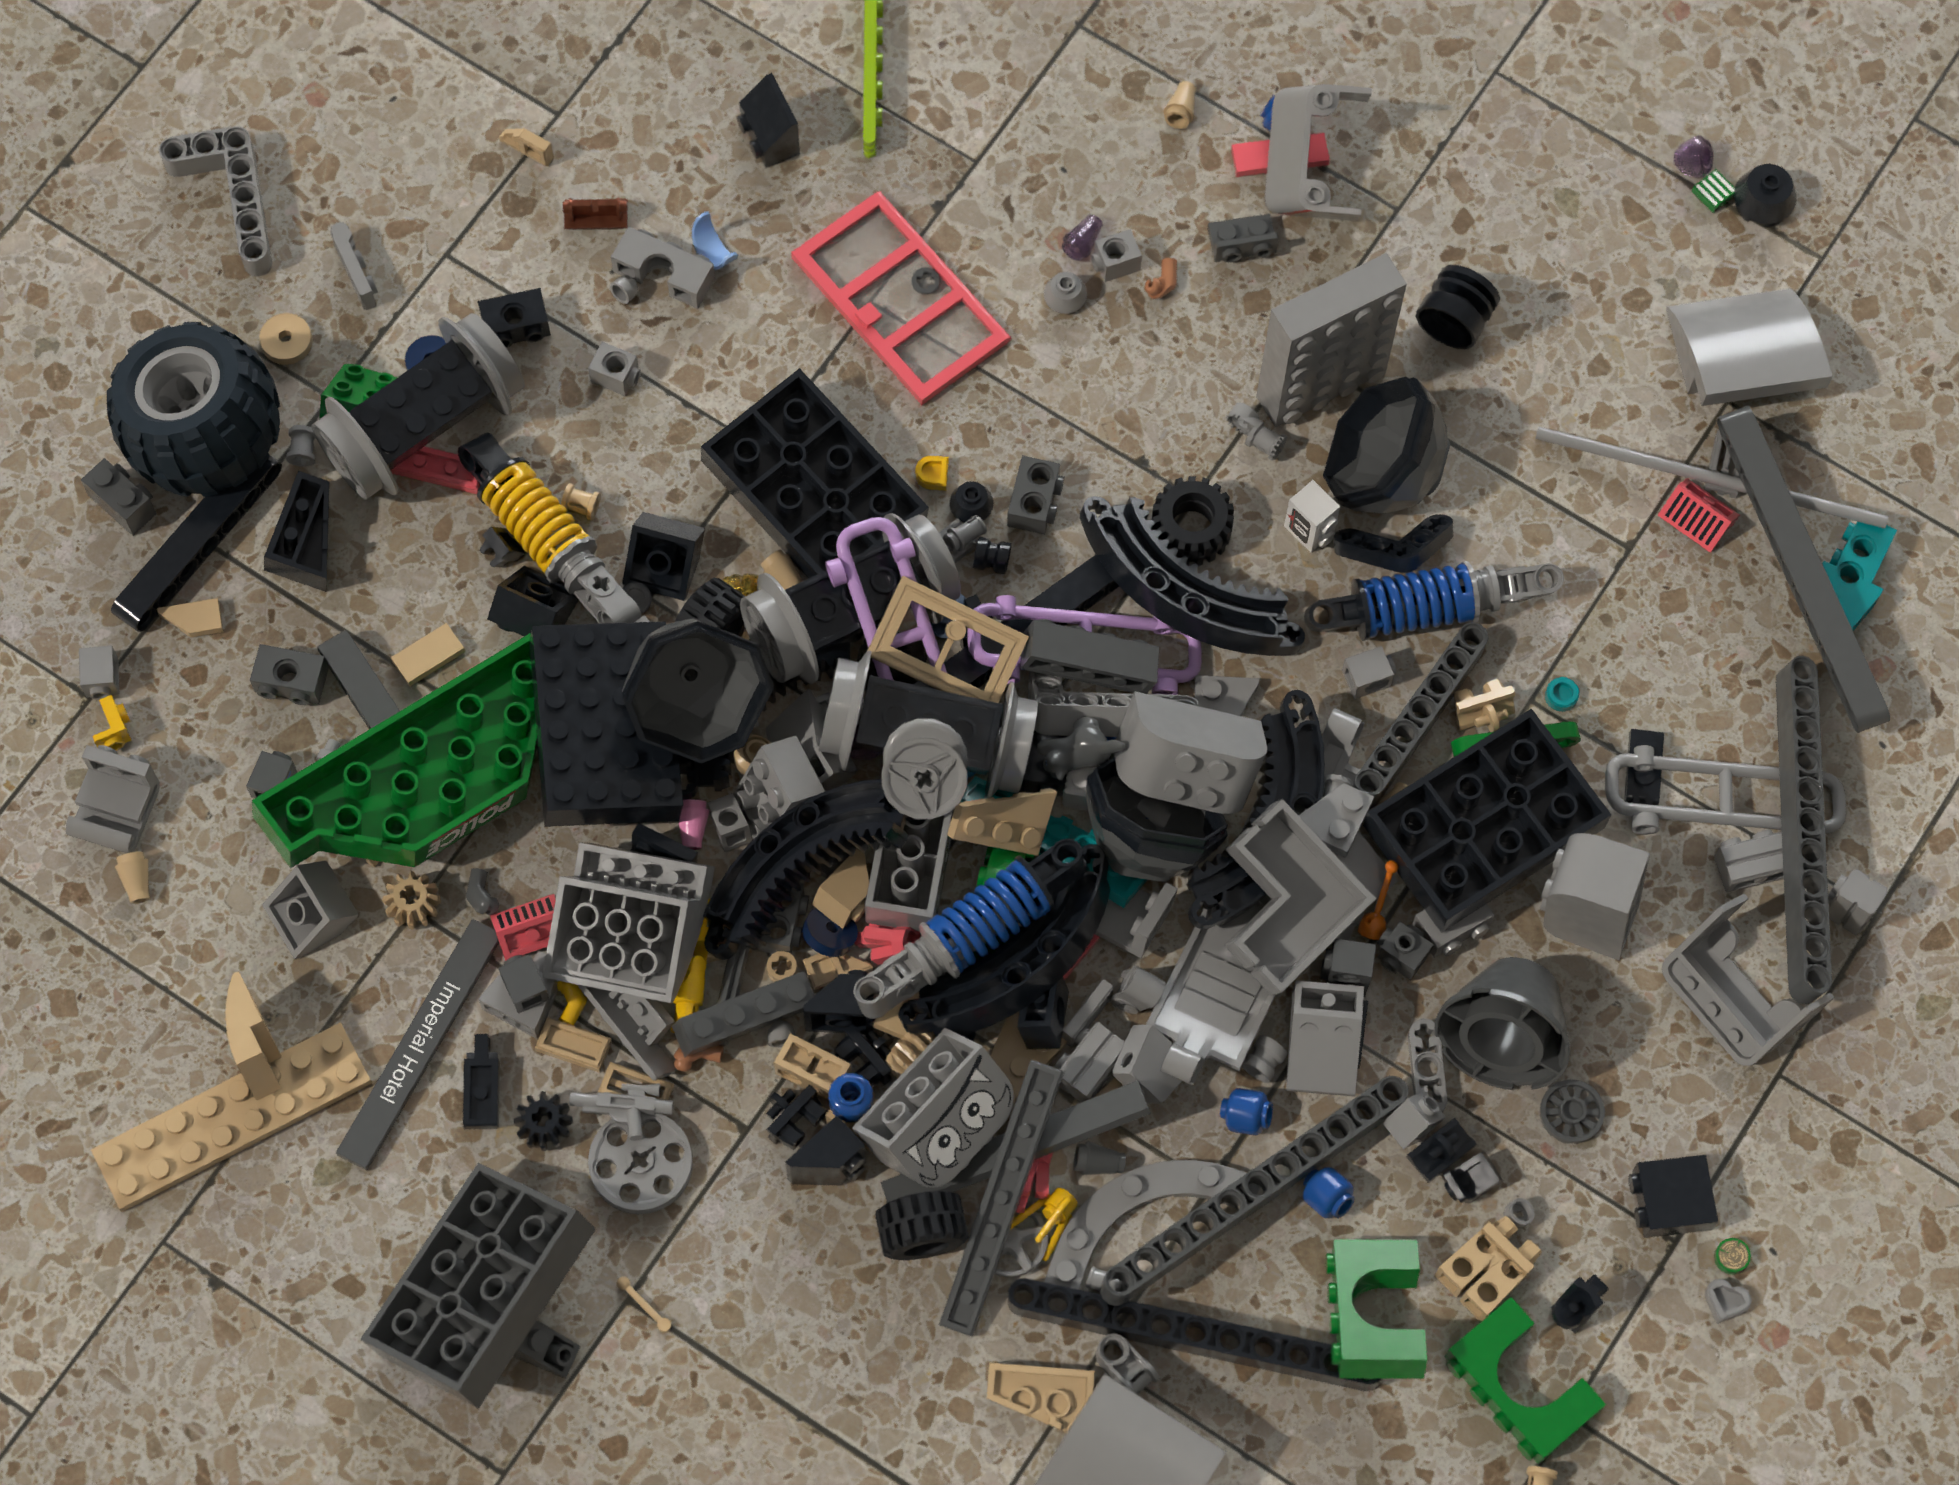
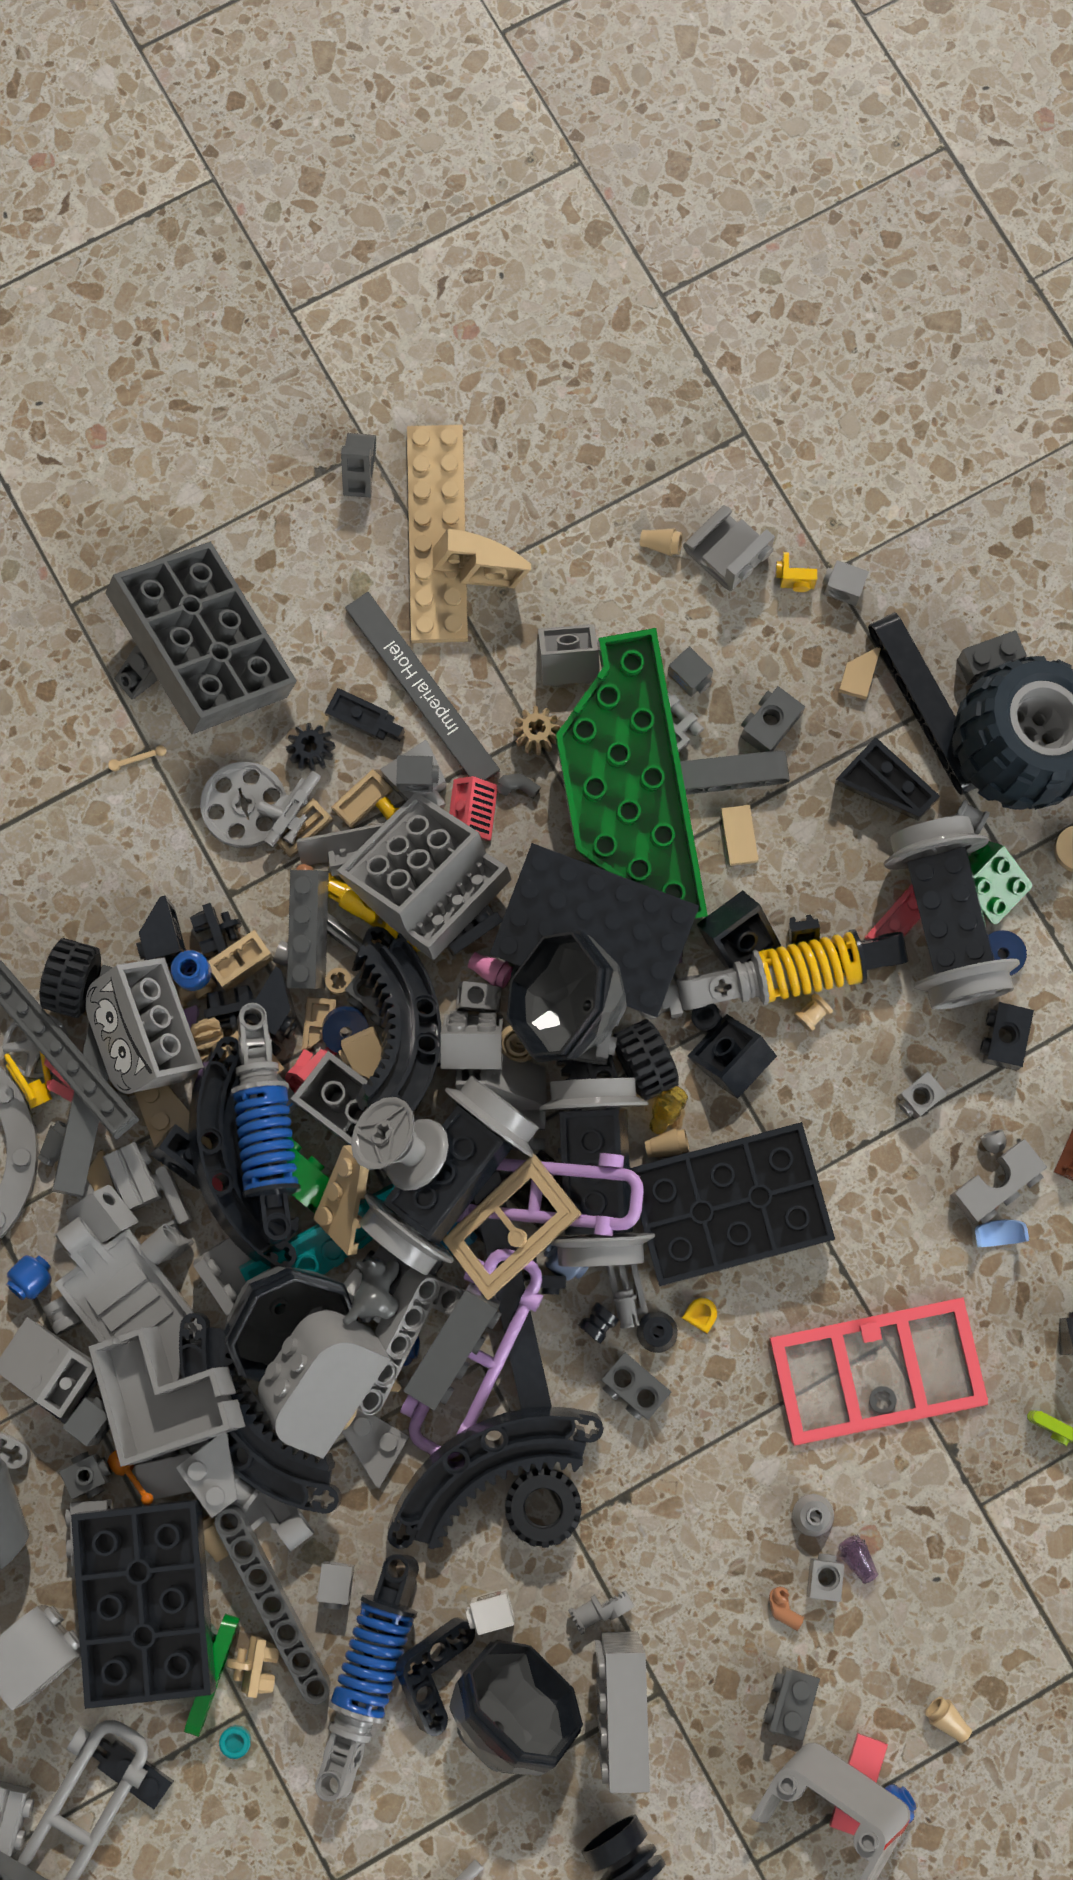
camera: 120 degrees right, 10 degrees up
(188, 1234) = (358, 464): none -> dark grey tile

